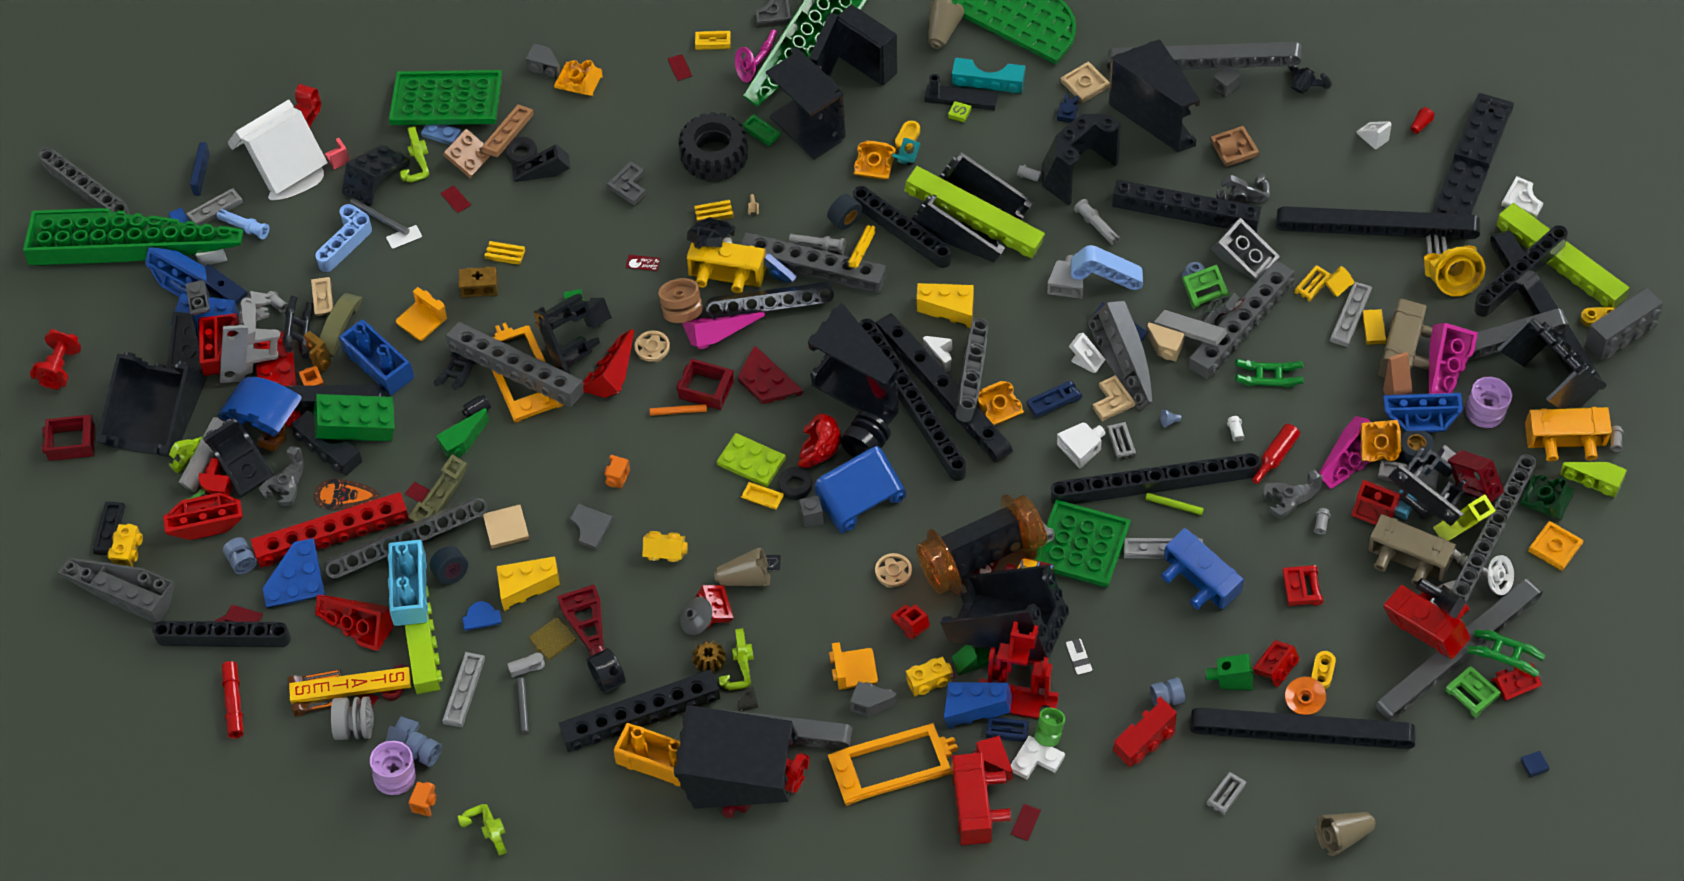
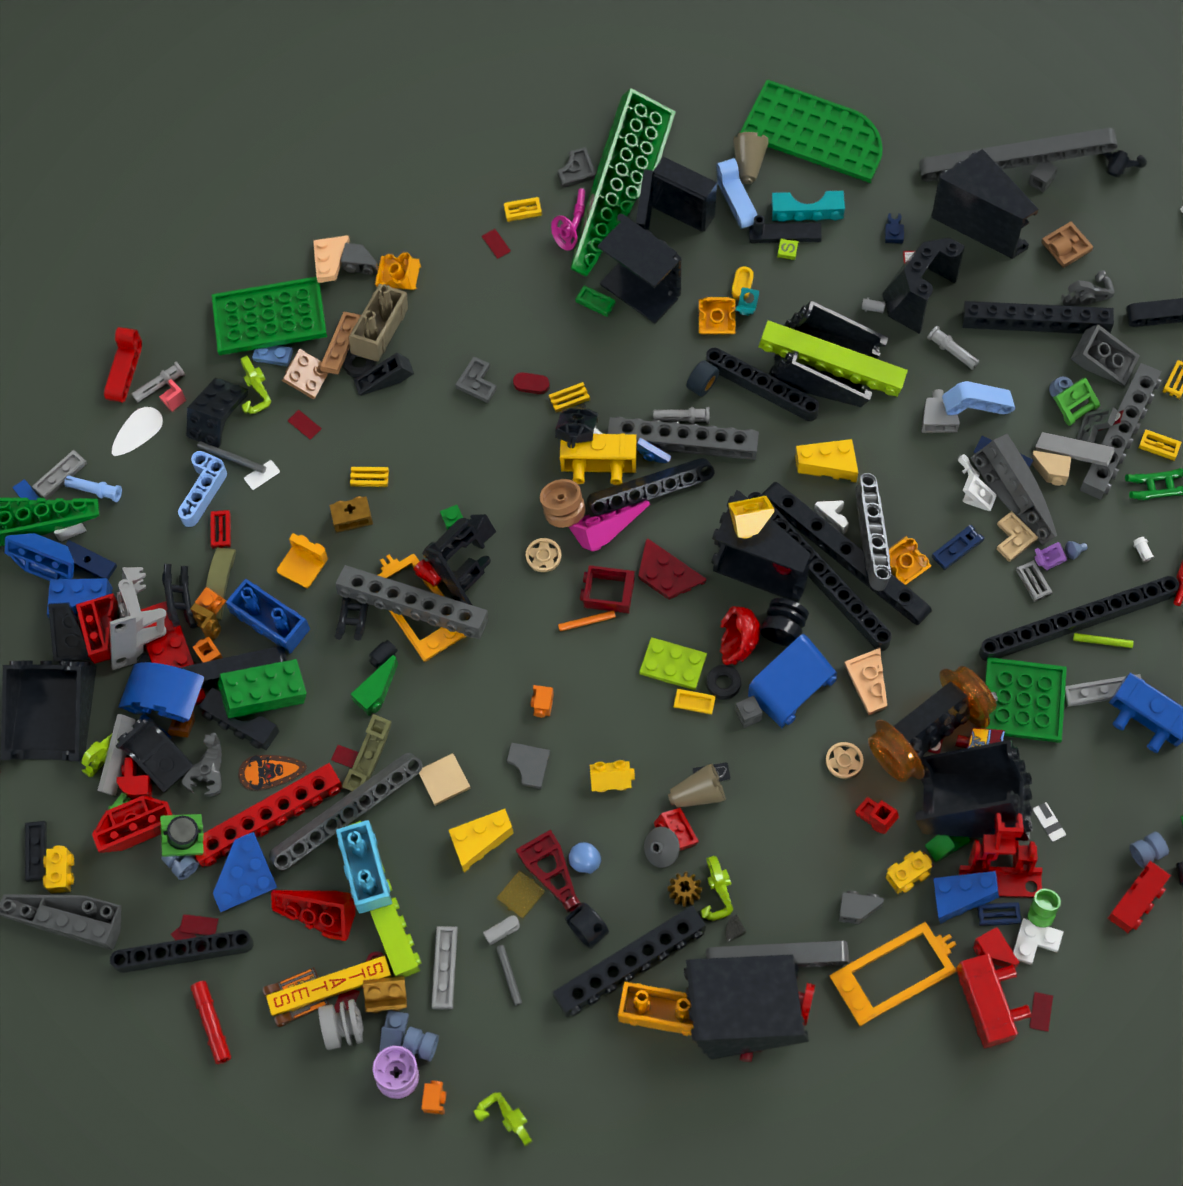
camera: 10 degrees left, 10 degrees up
(198, 297) = (71, 586): dark grey slope -> none
(199, 168) = (34, 434): dark blue tile -> none
(243, 528) = (181, 834): none -> piece
(277, 302) = (149, 569): light grey pin -> none
(280, 146) = (114, 399): white container -> none
(322, 296) = (195, 557): tan plate -> none
(326, 333) = (210, 600): none -> orange brick
(334, 135) = (164, 374): none -> light grey pin
(350, 289) = (221, 543): none -> red tile
(400, 700) = (385, 994): none -> pearl gold bracket
(448, 565) = (397, 834): black wheel -> none
(481, 615) = (443, 883): blue piece -> none
(515, 55) = (328, 257): none -> light nougat wing
(535, 340) = (427, 572): none -> red cone
(547, 116) = (378, 322): none -> dark tan piece
(611, 368) = (509, 589): red wedge -> none
(621, 615) = (584, 858): none -> medium blue hair
(643, 262) = (511, 464): dark red sticker -> none
(680, 194) = (531, 383): none -> dark red tile
(708, 129) = (548, 308): black tyre -> none
(753, 206) = (607, 385): tan hand -> none
(845, 325) = (750, 515): none -> yellow slope
(852, 667) = (831, 875): light orange bracket -> none
(861, 246) = (729, 414): yellow axle -> none
(919, 51) = (735, 193): none -> light blue beam
(935, 501) = (868, 679): none -> light nougat wing
(1081, 443) = (996, 591): white torso -> none
(1082, 325) = (964, 460): none -> white piece
(1085, 82) = (903, 197): tan tile -> none
(1142, 420) = (1050, 556): none -> medium lavender bracket
(1276, 340) = (1159, 448): none -> yellow tile

